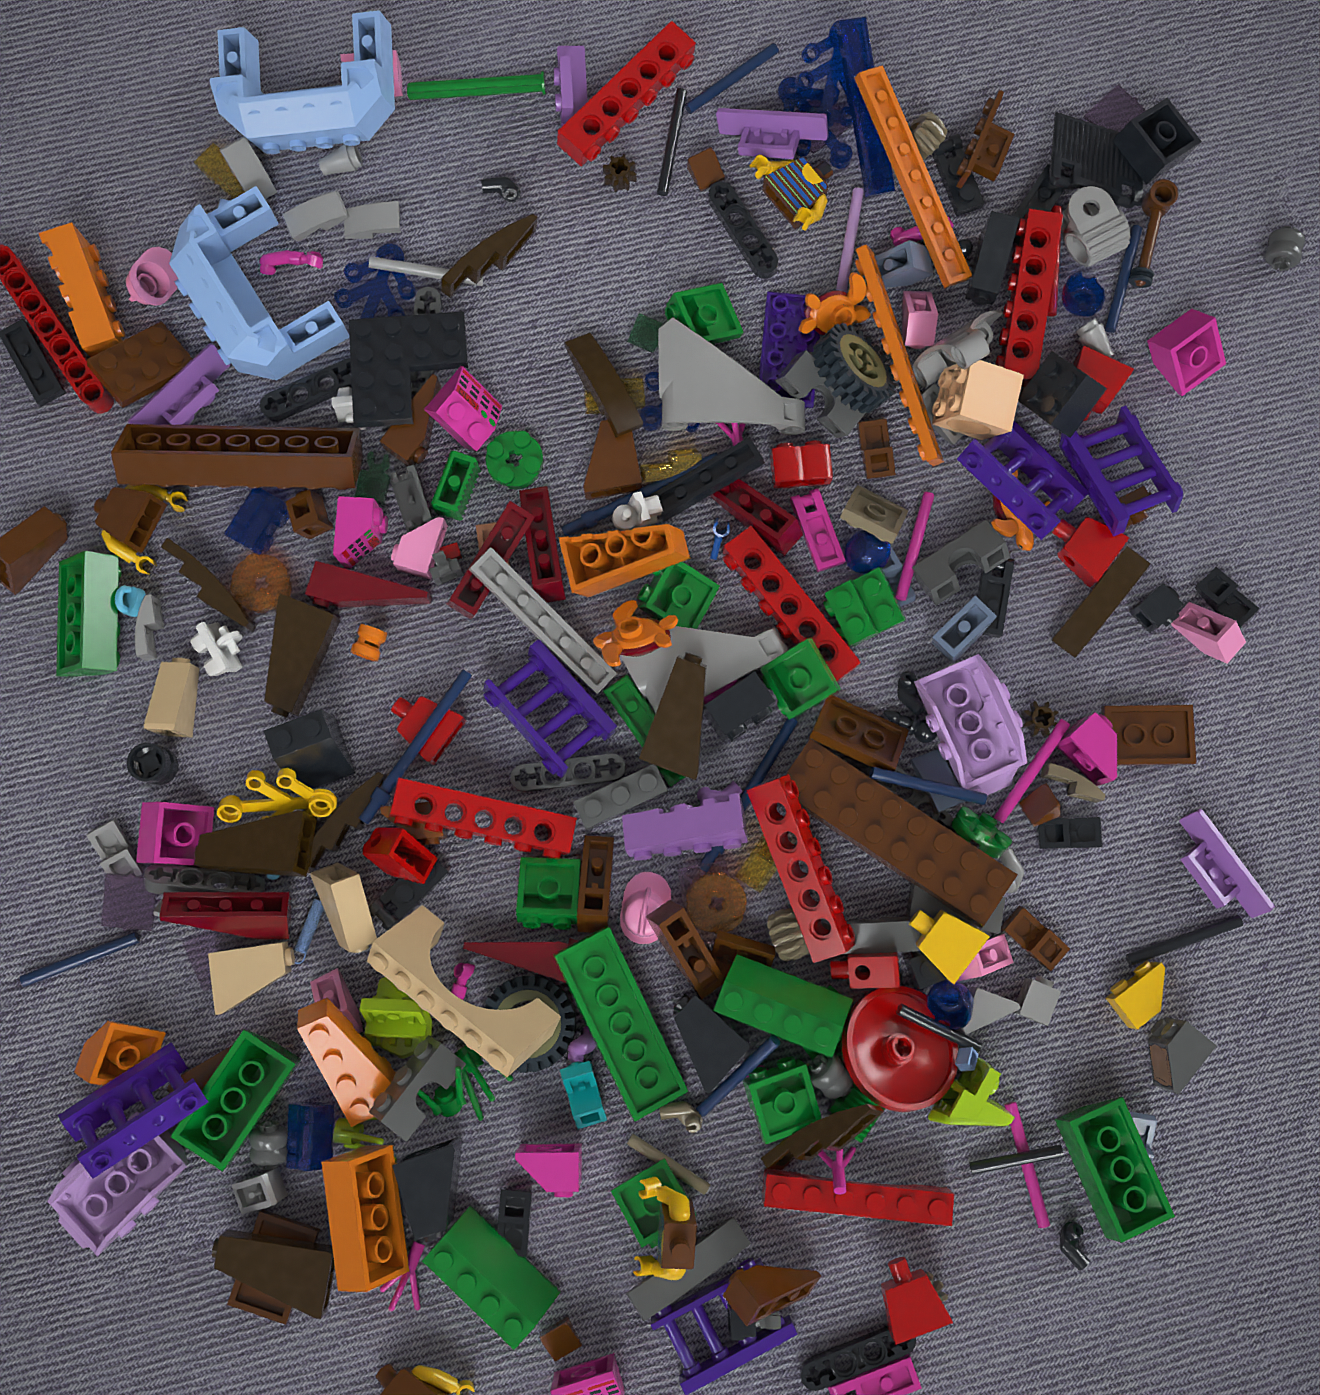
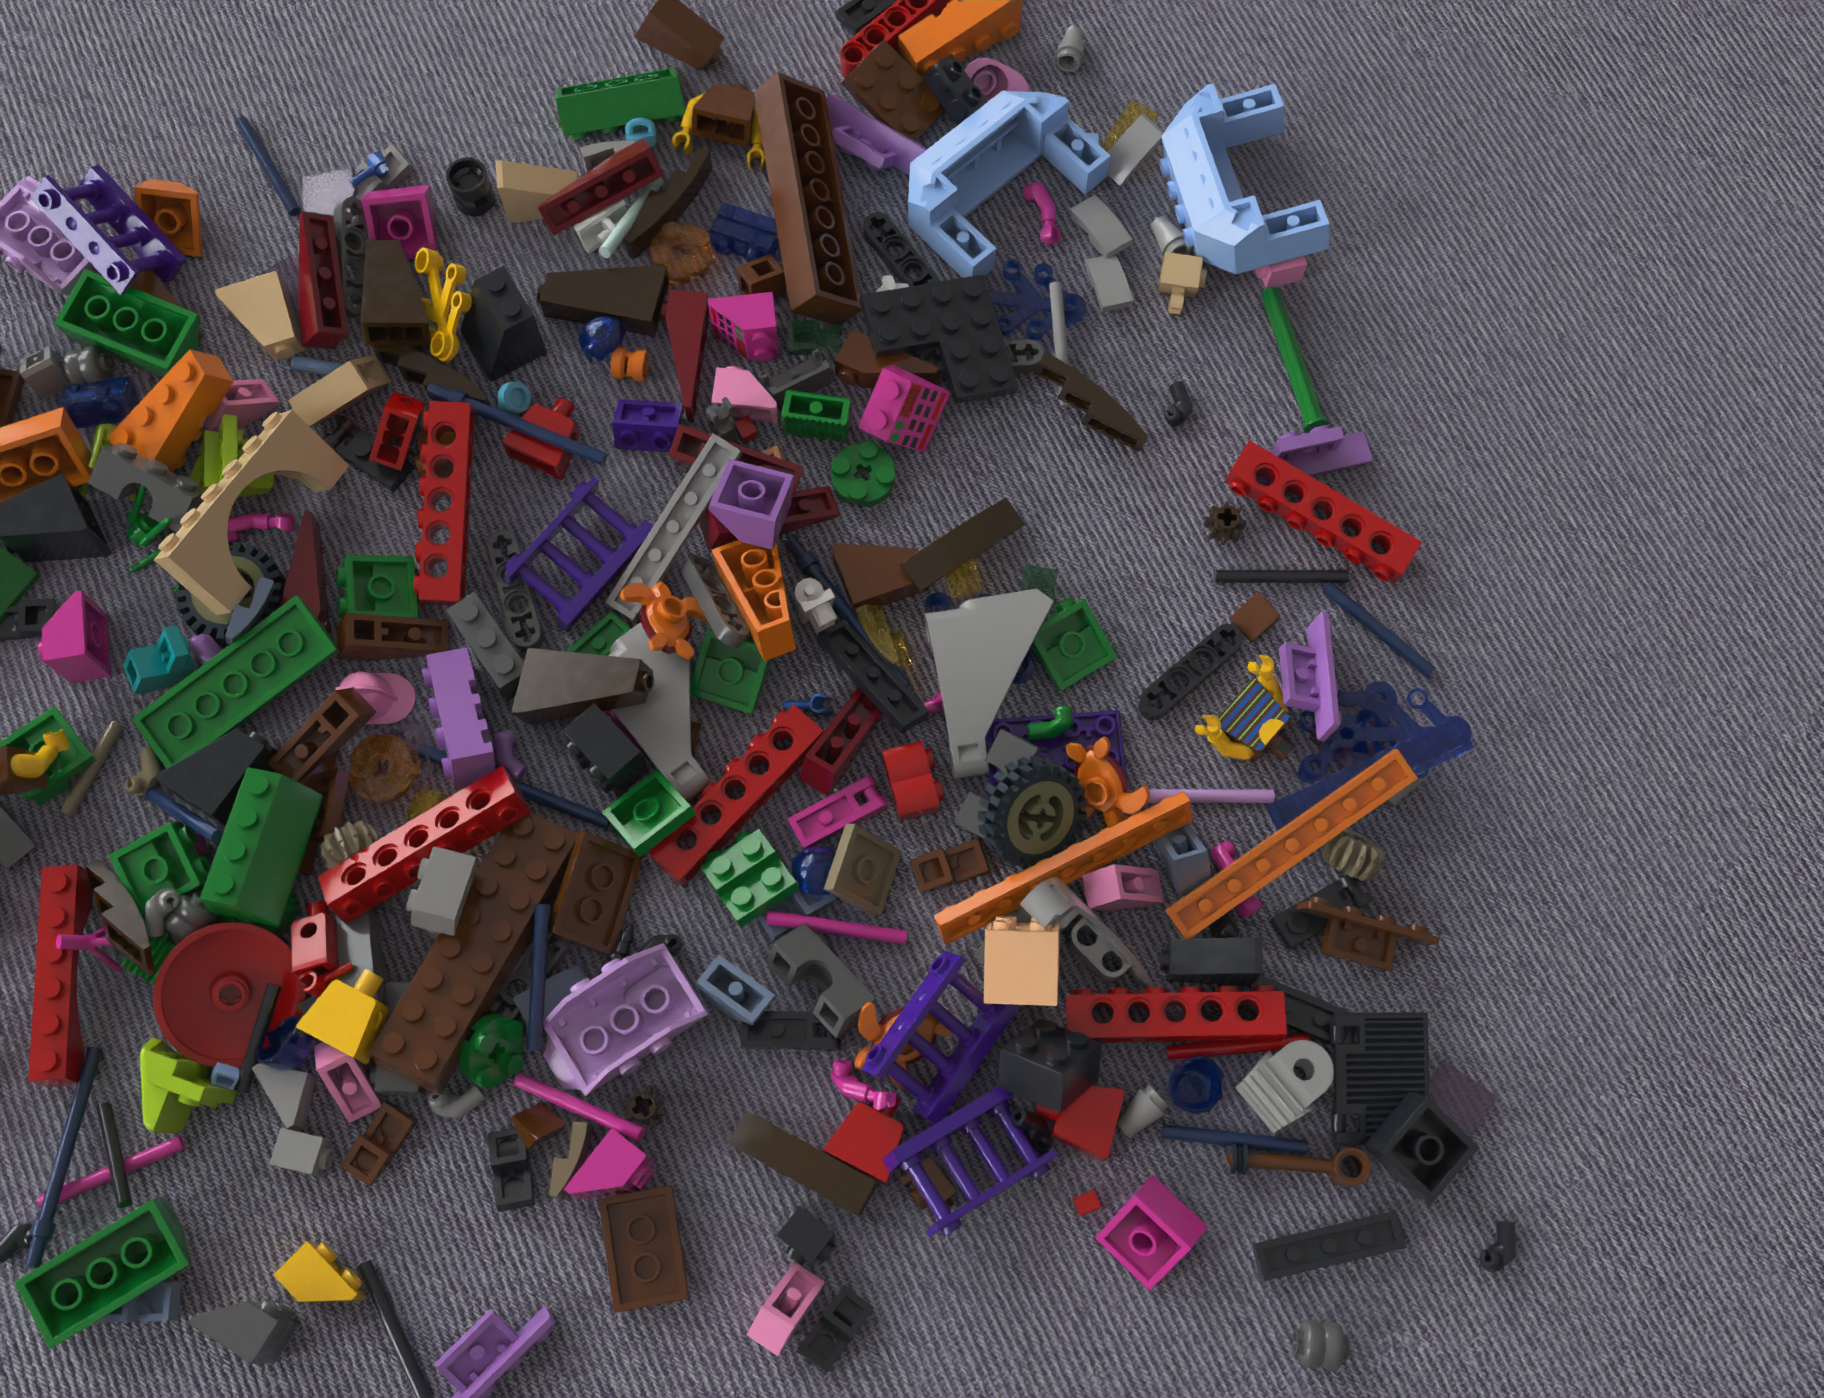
camera: 80 degrees right, 10 degrees down
(111, 850) = (377, 167): none -> blue hand
(127, 204) = (1070, 52): none -> light grey cone
(154, 307) = (954, 89): none -> black bracket
(181, 627) = (601, 186): none -> dark red slope
(220, 618) = (627, 221): none -> light aqua bar
(339, 662) = (600, 337): none -> clear blue hair
(381, 751) = (514, 398): none -> medium azure tile
(382, 159) = (1181, 277): none -> tan brick
(431, 635) = (646, 425): none -> dark purple bracket
(542, 542) = (752, 502): none -> medium lavender slope
(567, 1006) = (246, 618): none -> sand blue slope
(619, 596) = (715, 601): none -> dark grey beam
(777, 332) = (1053, 728): none -> green arm
(820, 1102) = (157, 908): none -> light grey arm
(856, 848) = (442, 891): none -> light grey brick
(904, 960) = (320, 982): none -> red hand
(1051, 551) = (852, 1088): none -> dark pink arm
(1072, 1220) = (43, 1227): none -> dark blue bar
(1098, 422) = (1034, 1128): none -> black arm
(1156, 396) = (1086, 1203): none -> red piece
(1213, 228) = (1328, 1246): none -> black plate
(1231, 108) = (1503, 1250): none -> black arm

